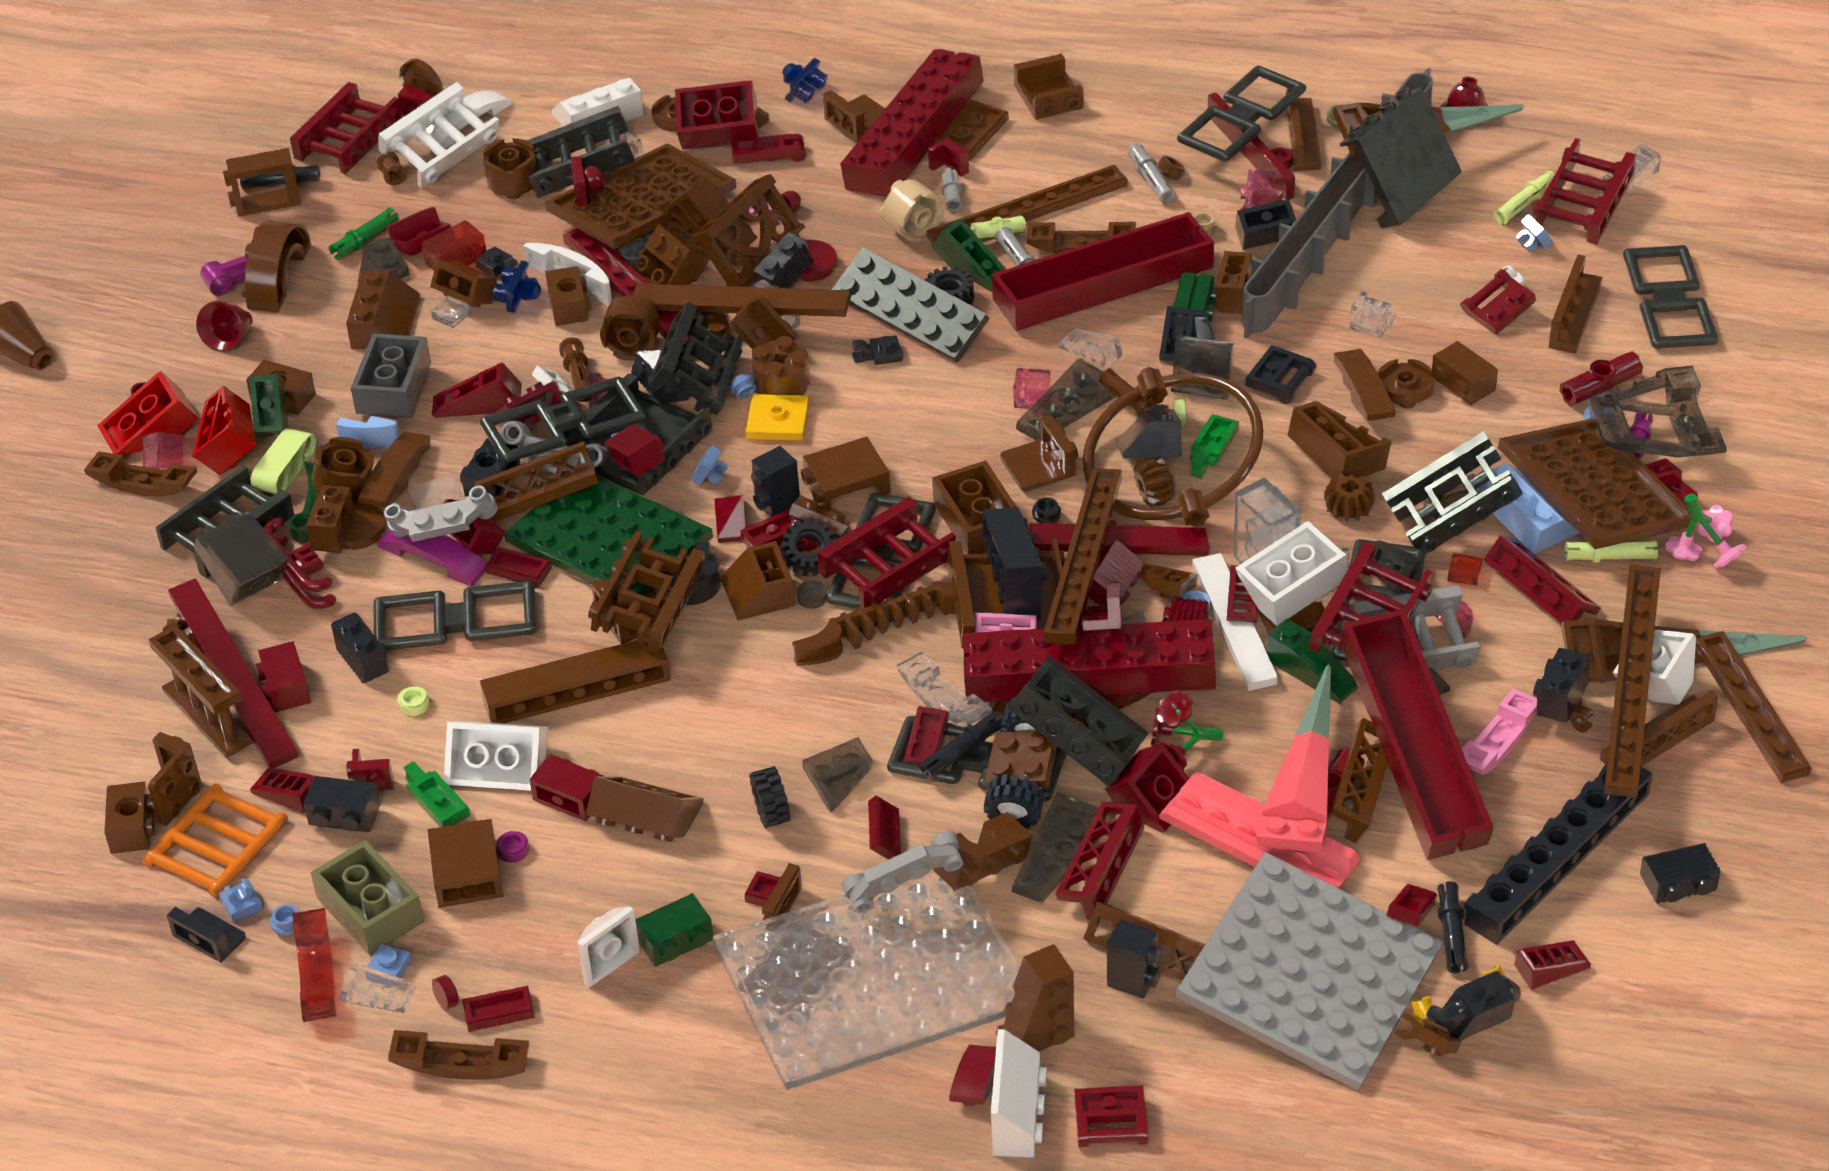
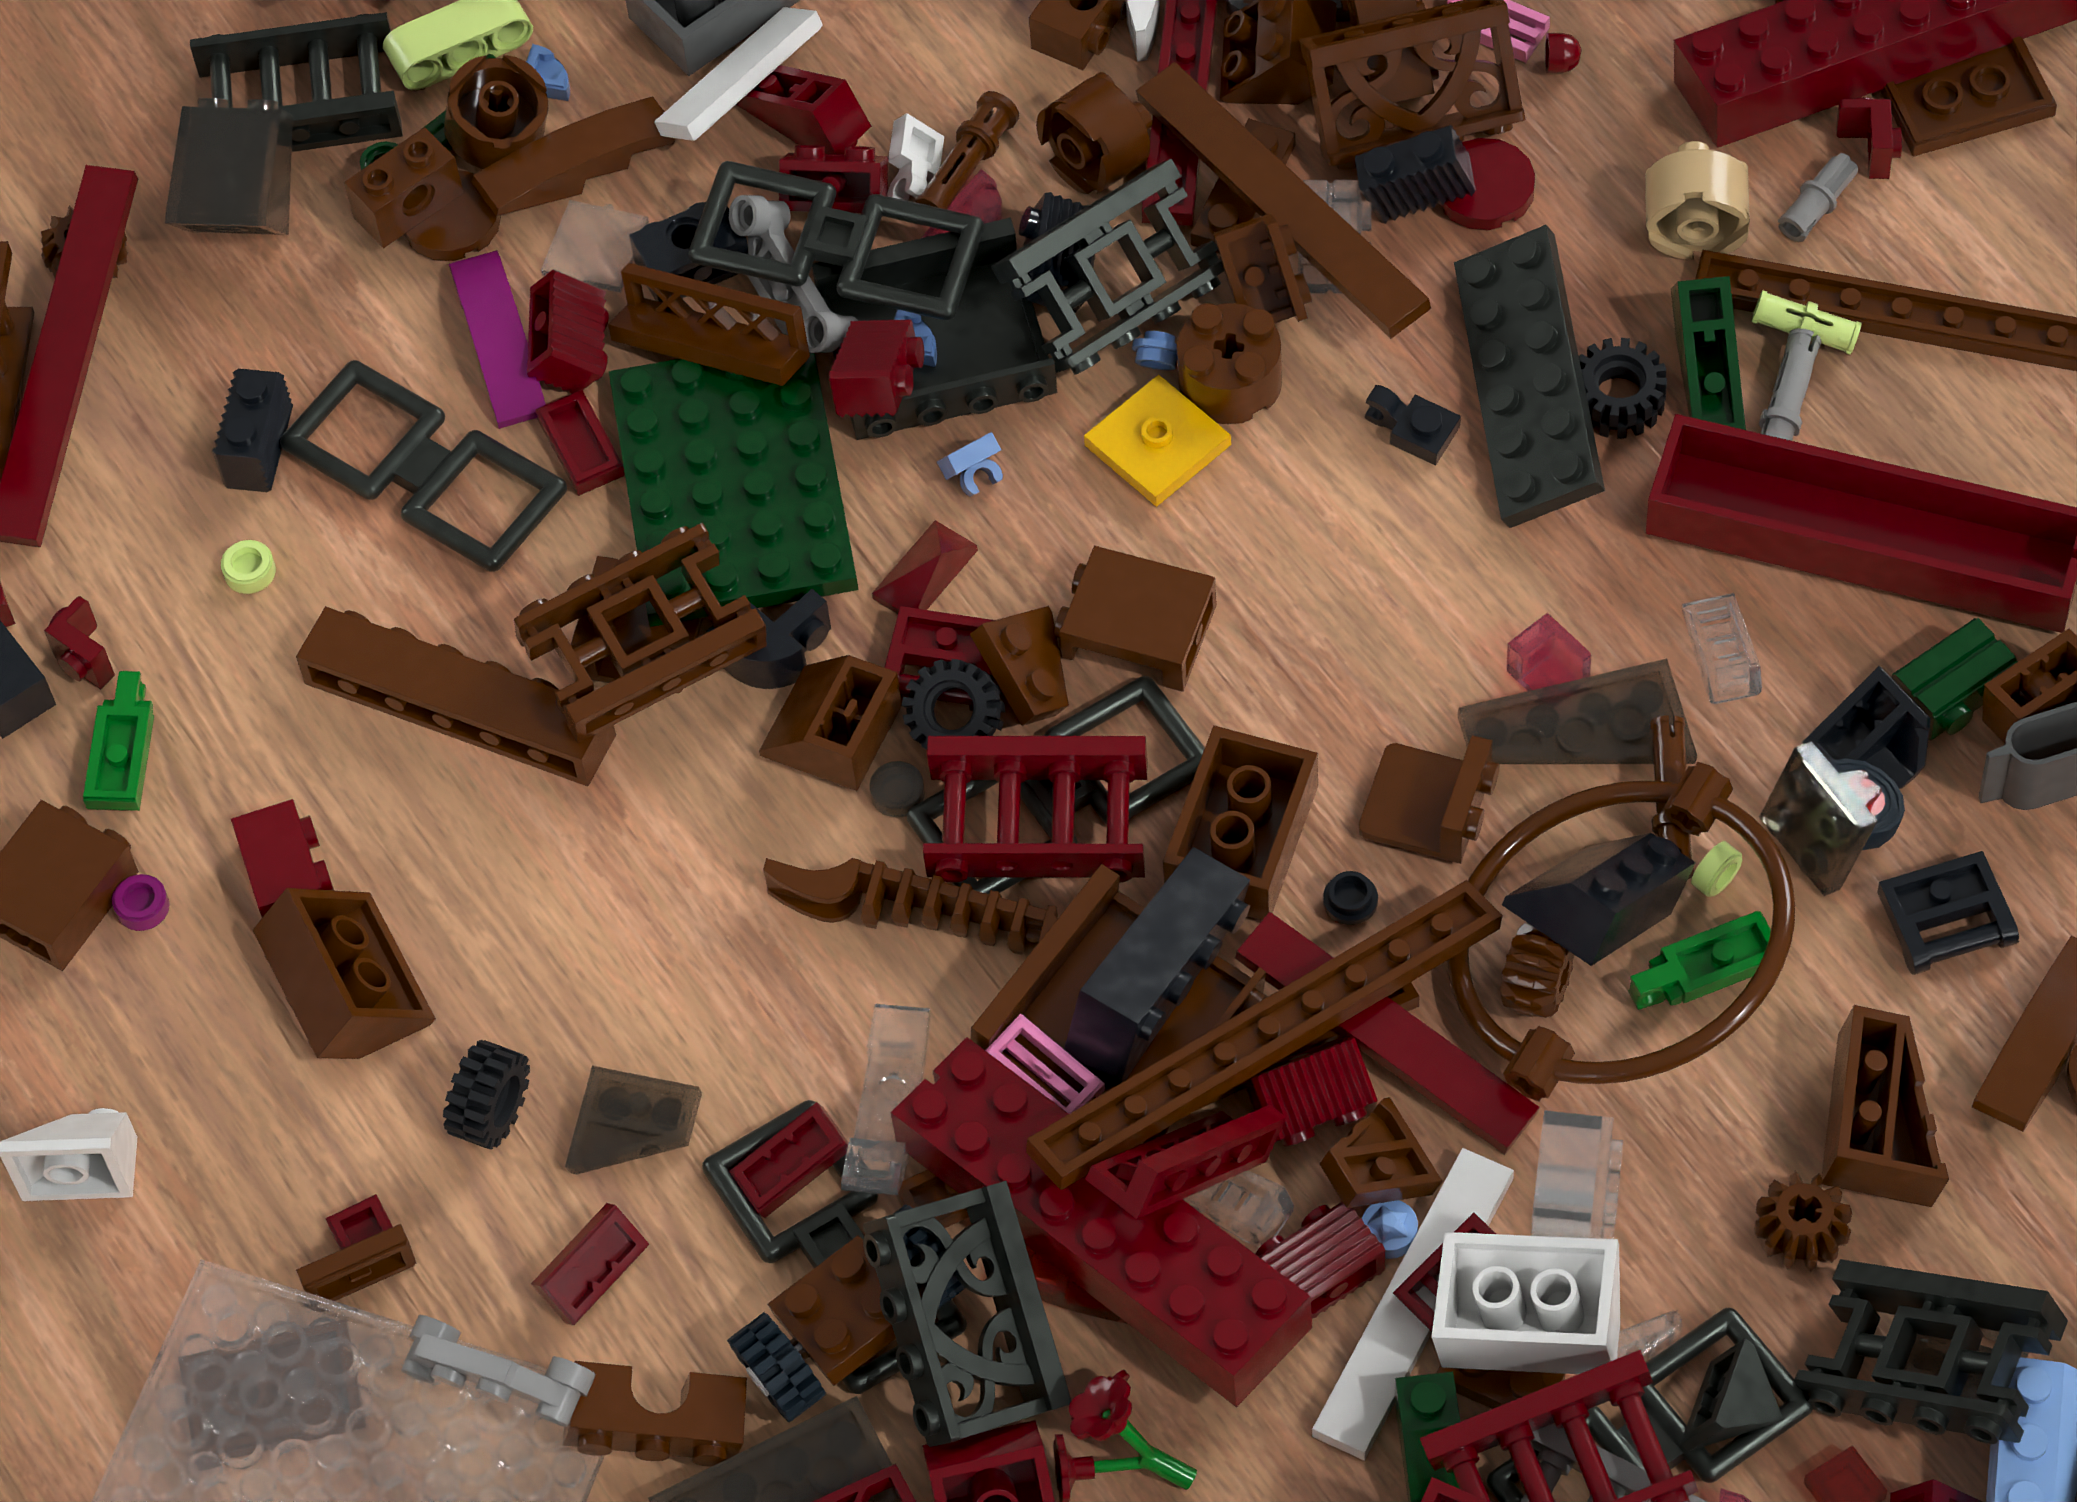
camera: 45 degrees right, 15 degrees up
(283, 676) = (127, 405): dark red brick -> none
(302, 563) = (306, 227): dark red piece -> none
(374, 434) = (600, 68): light blue slope -> none
(438, 398) = (738, 73): none -> white tile
(442, 518) = (520, 301): light grey plate -> none
(493, 754) = (247, 733): white slope -> none
(674, 929) = (184, 1204): dark green brick -> none
(775, 481) = (1010, 562): black brick -> none
(971, 738) = (825, 1214): black pin -> none
(1046, 238) = (1902, 430): reddish brown slope -> none

